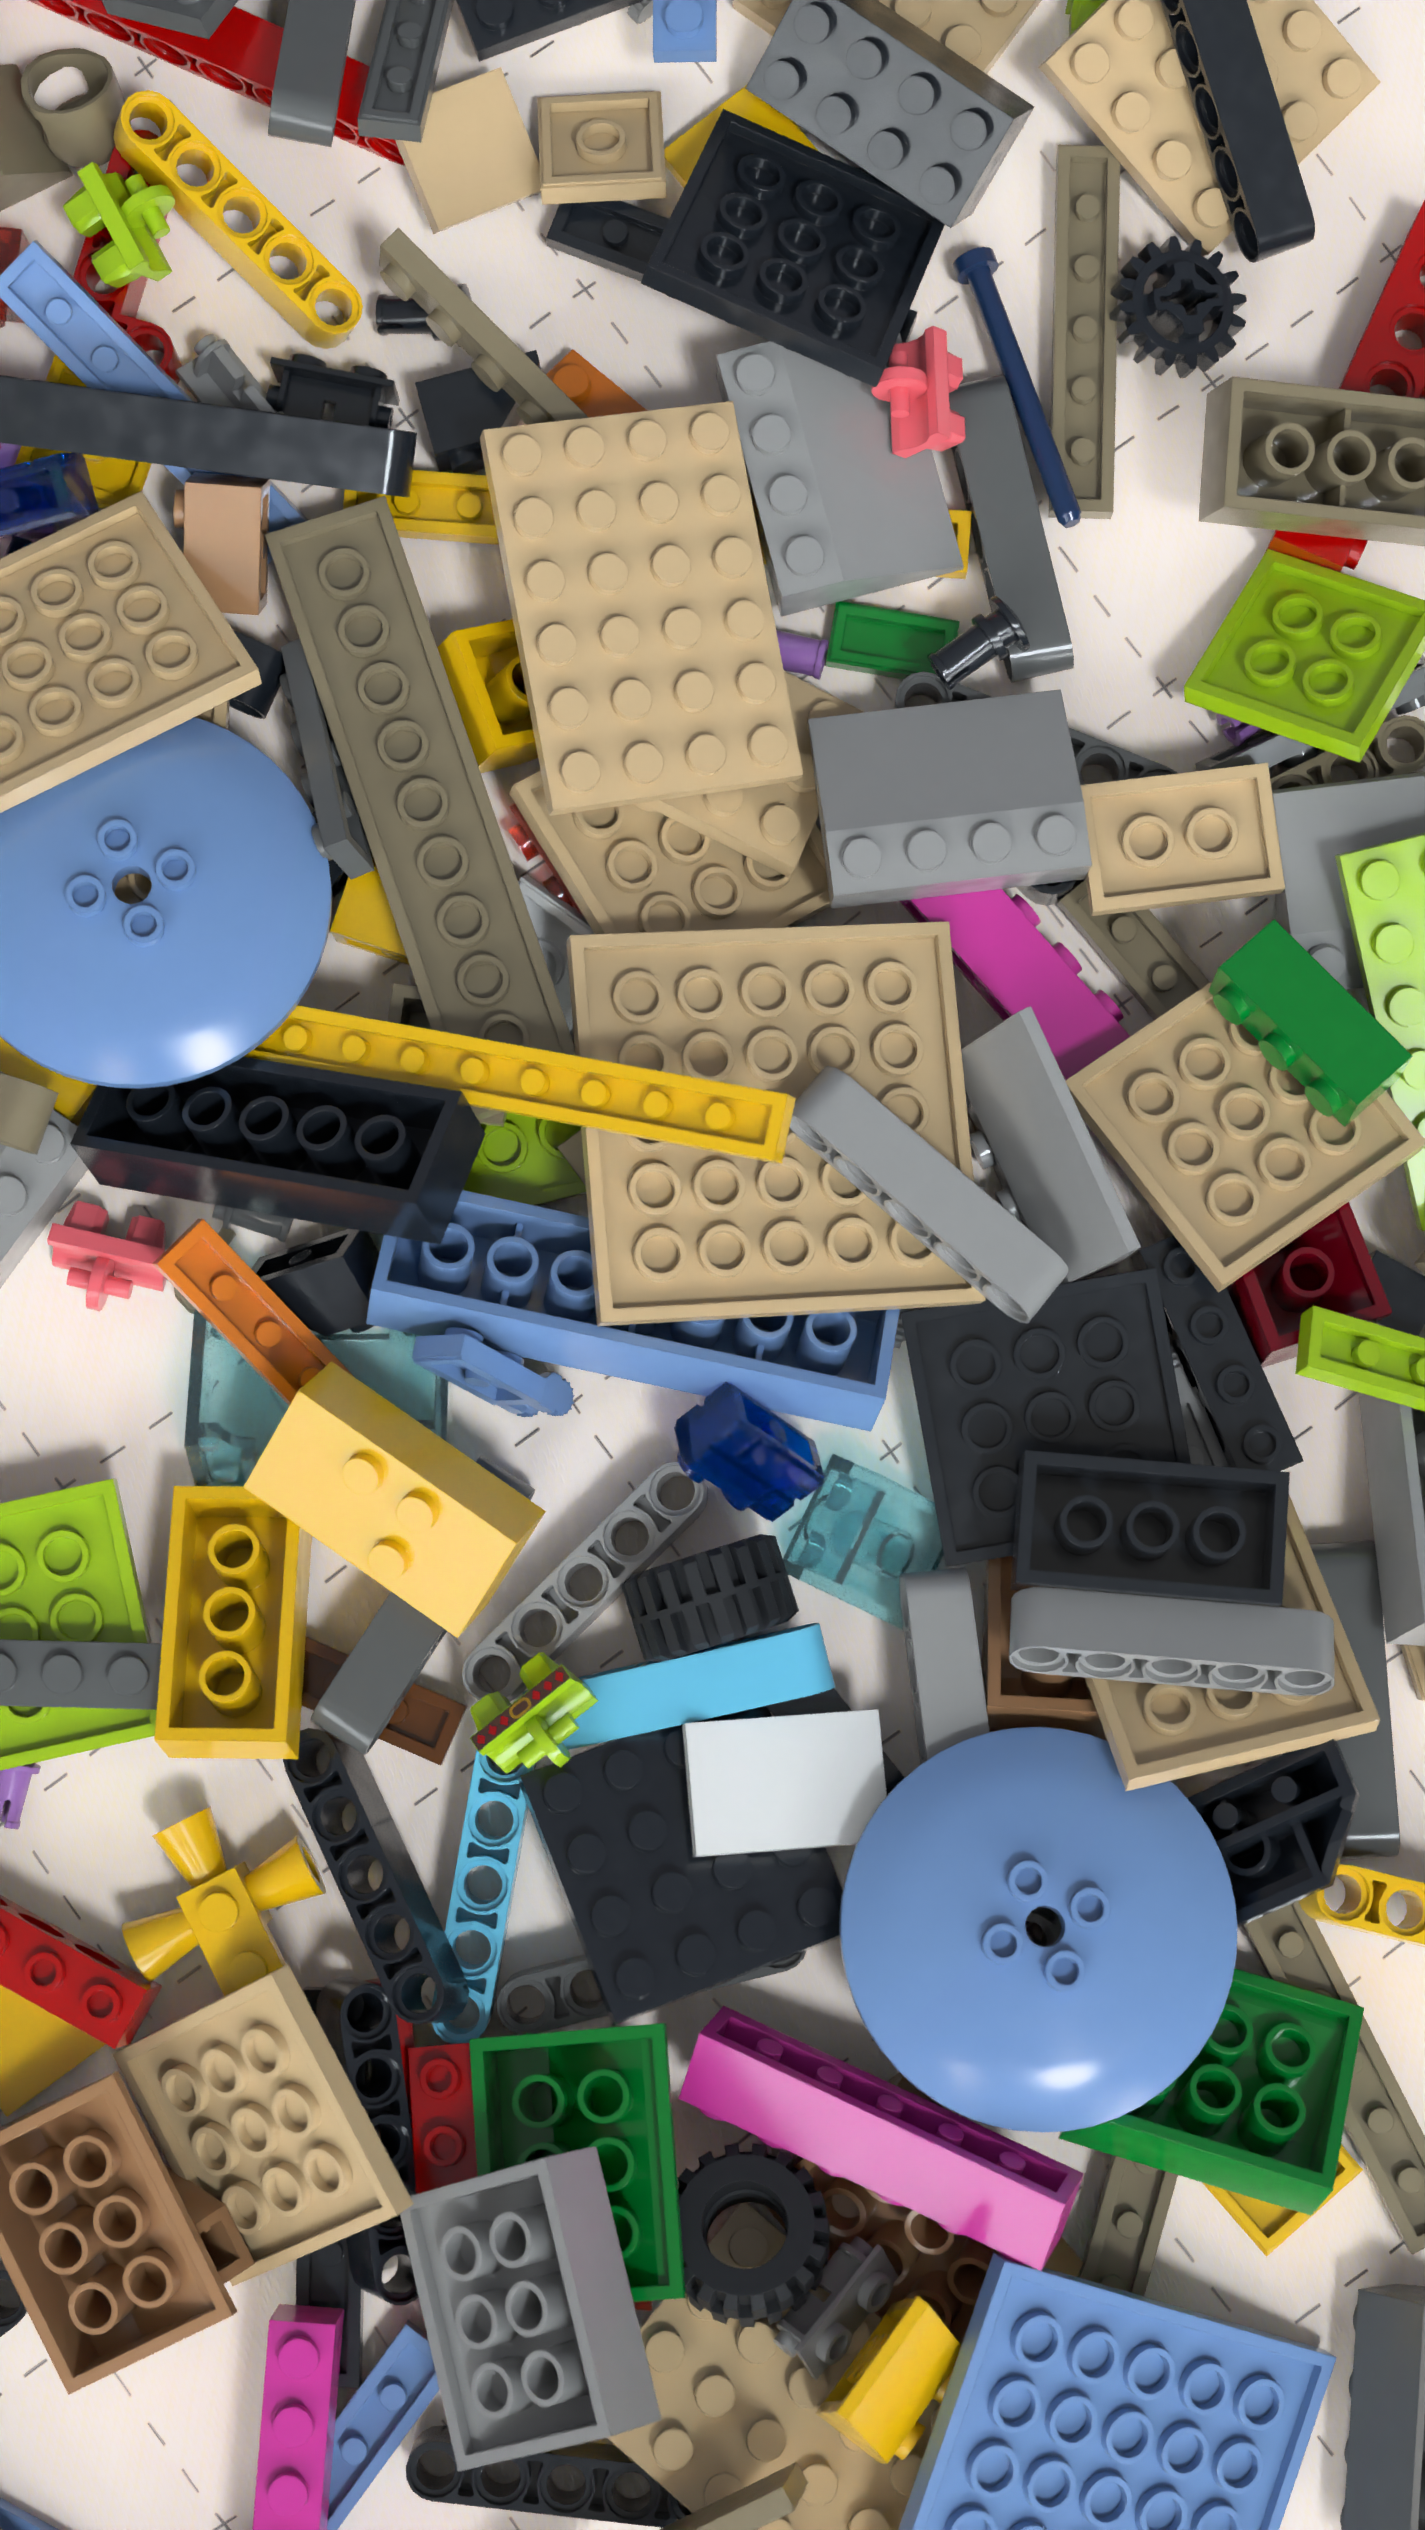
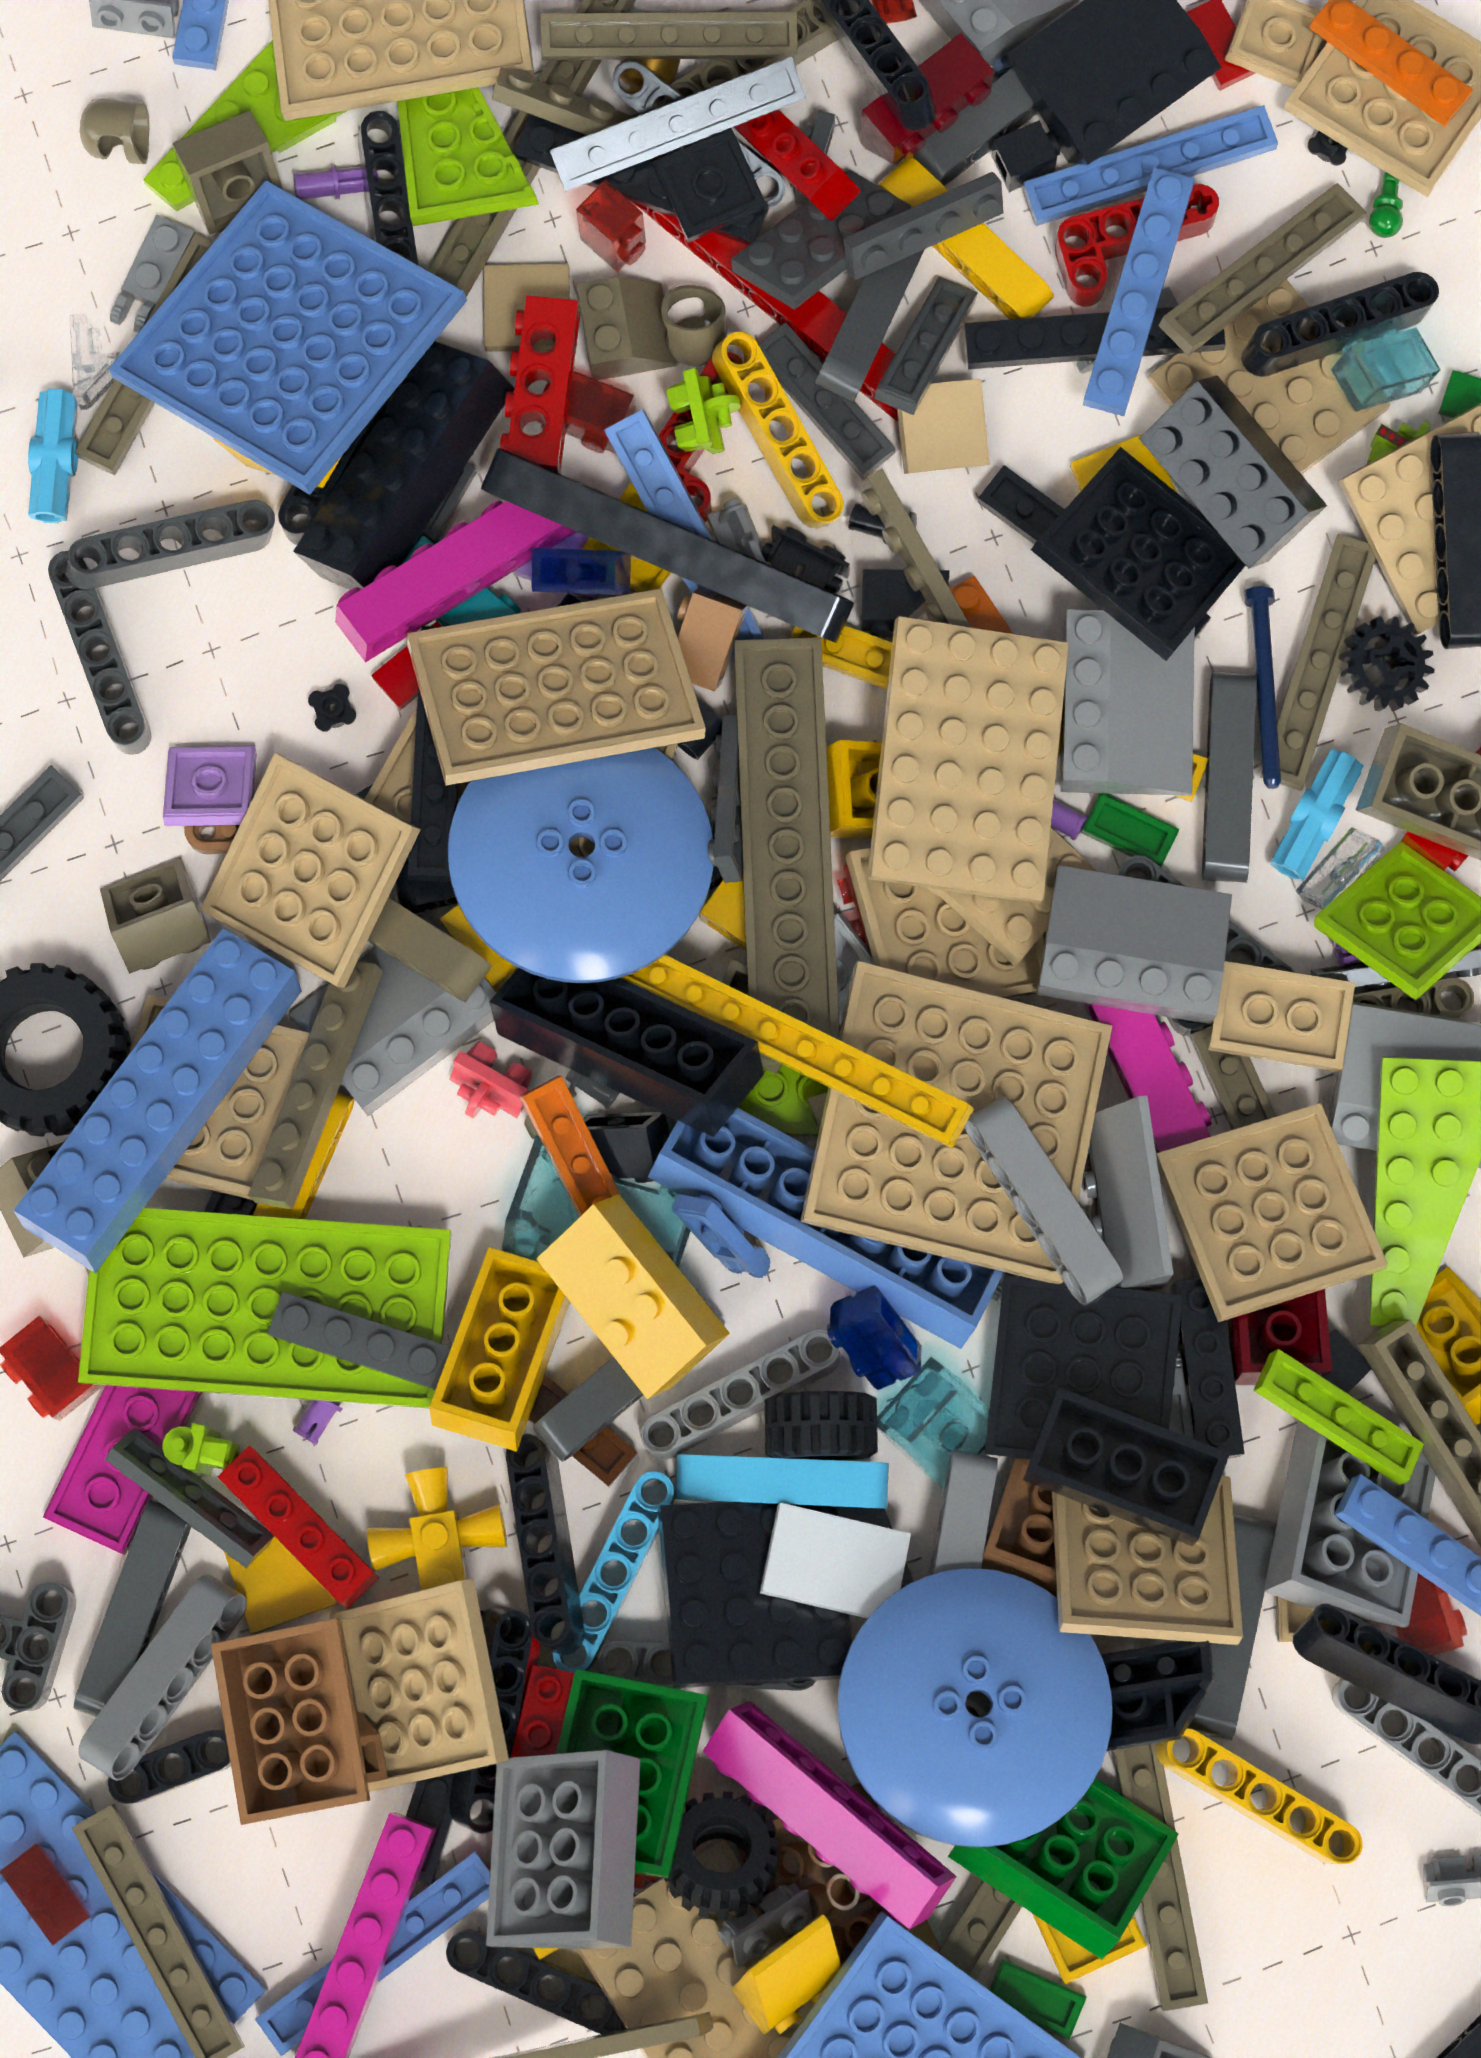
camera: 20 degrees right, 5 degrees down
(299, 172) = (837, 418): none -> dark grey plate
(536, 1720) = (681, 1471): lime hips -> none
(601, 147) = (1032, 449): tan tile -> none
(918, 393) = (1194, 671): coral hips -> none
(979, 644) = (1186, 849): black pin -> none
(1143, 545) = (1317, 815): none -> medium azure piece
(1172, 1641) = (1119, 1543): light grey beam -> none
(1196, 610) = (1340, 868): none -> clear plate
(1234, 2286) = (1038, 1998): none -> green tile
(1308, 1024) = (1330, 1162): green brick -> none

